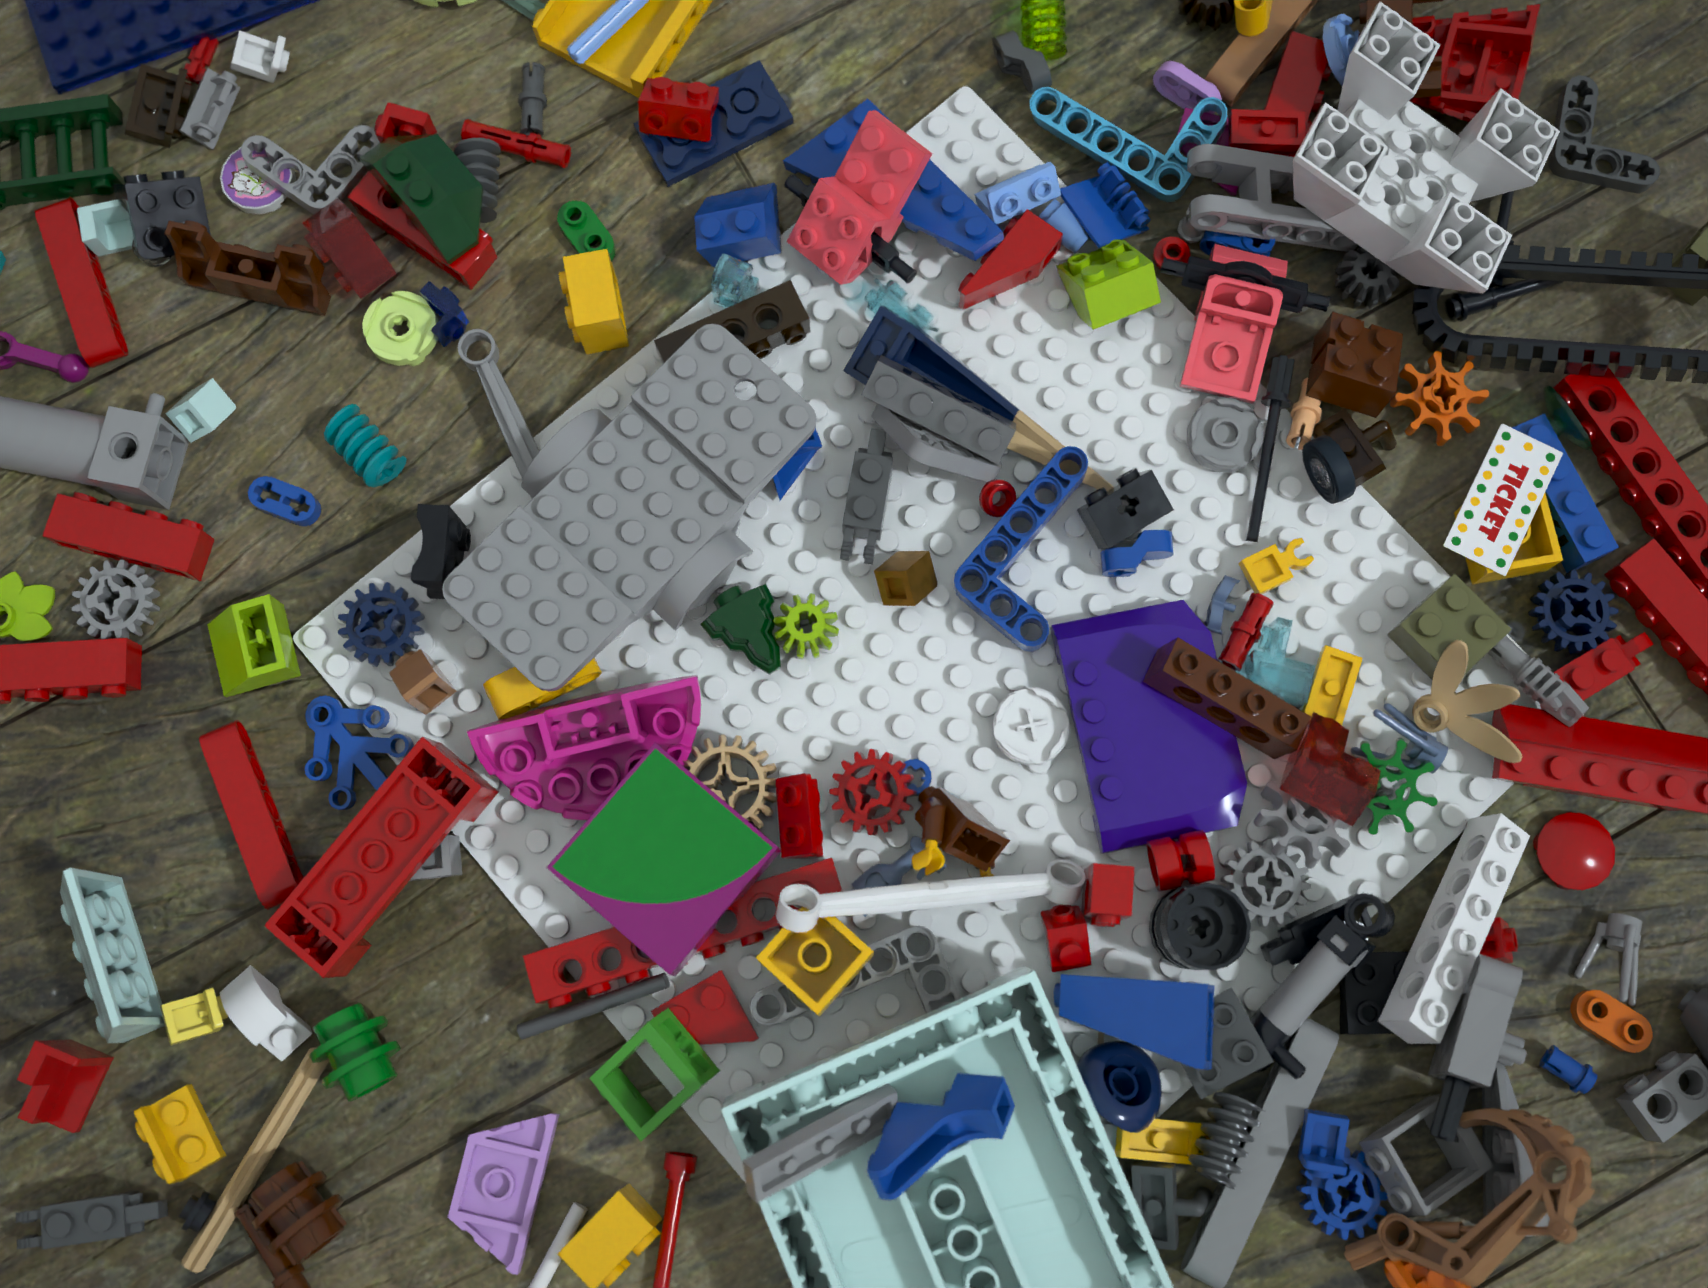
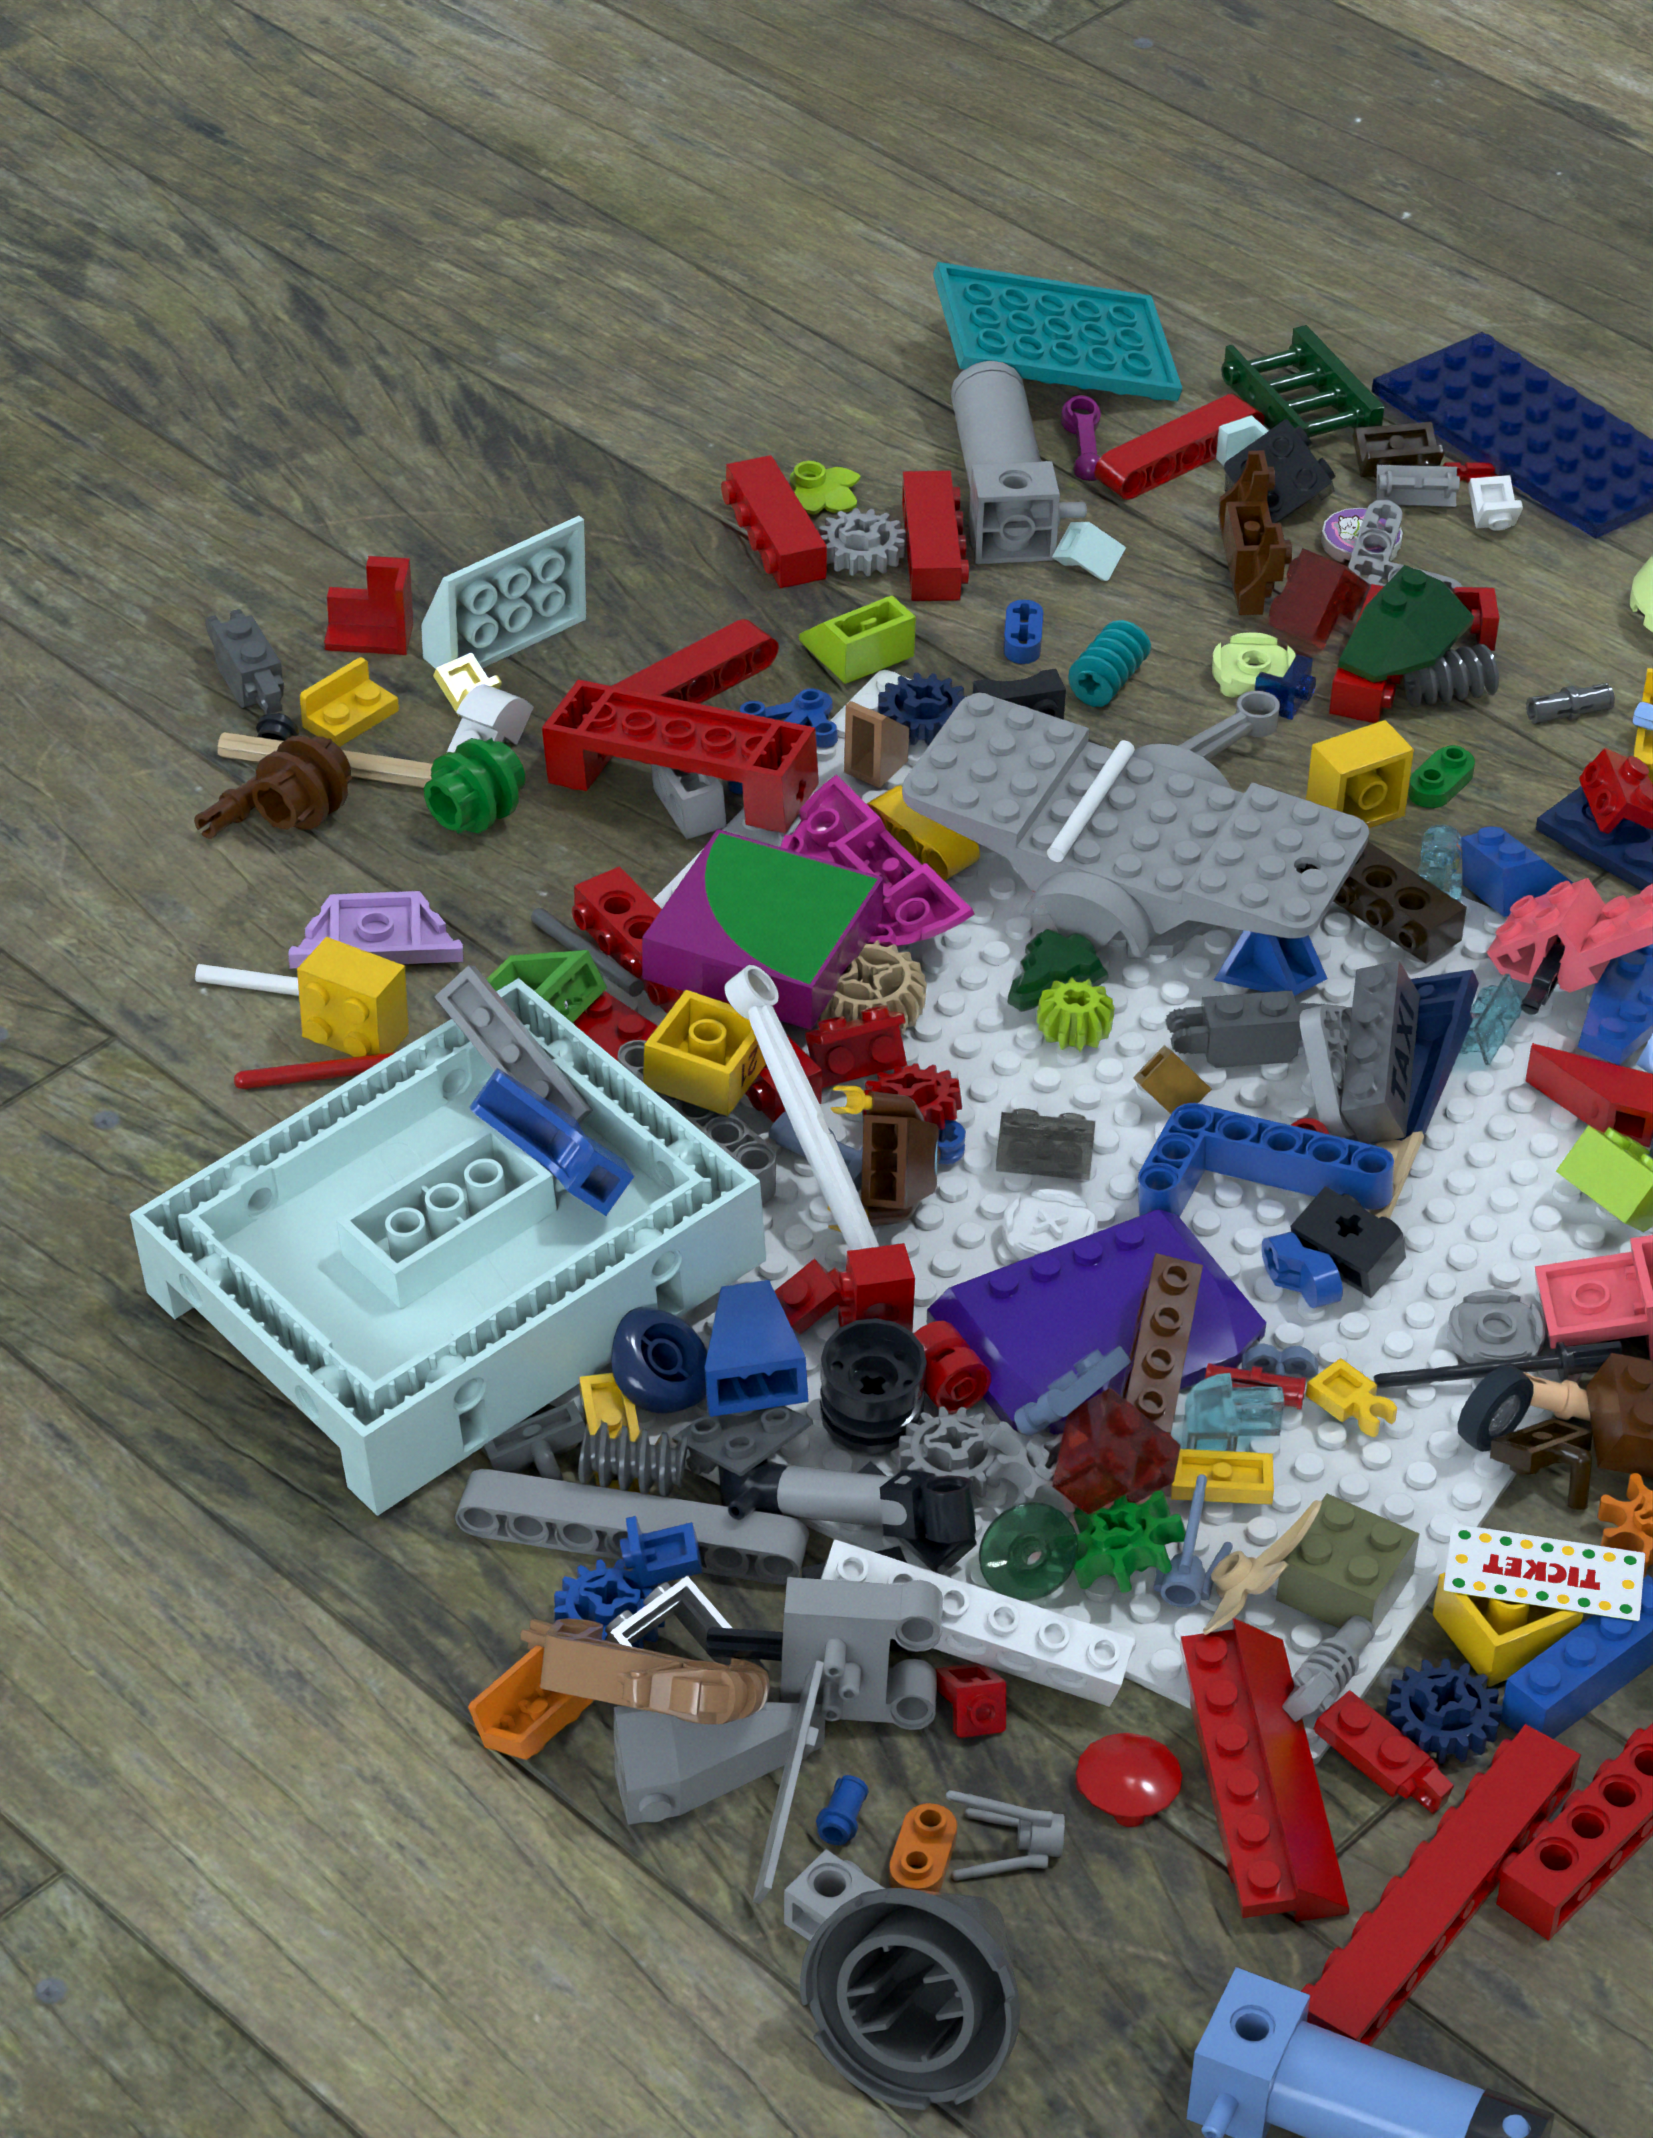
camera: 70 degrees right, 35 degrees down
(529, 146) = (1516, 725): red pin -> none
(607, 534) = (1090, 801): none -> white bar
(947, 700) = (1045, 1144): none -> clear smoke bracket
(1262, 778) = (1070, 1390): none -> sand blue plate
(1391, 868) = (1015, 1537): none -> clear green dish
(1552, 1098) = (801, 1745): none -> light grey piece

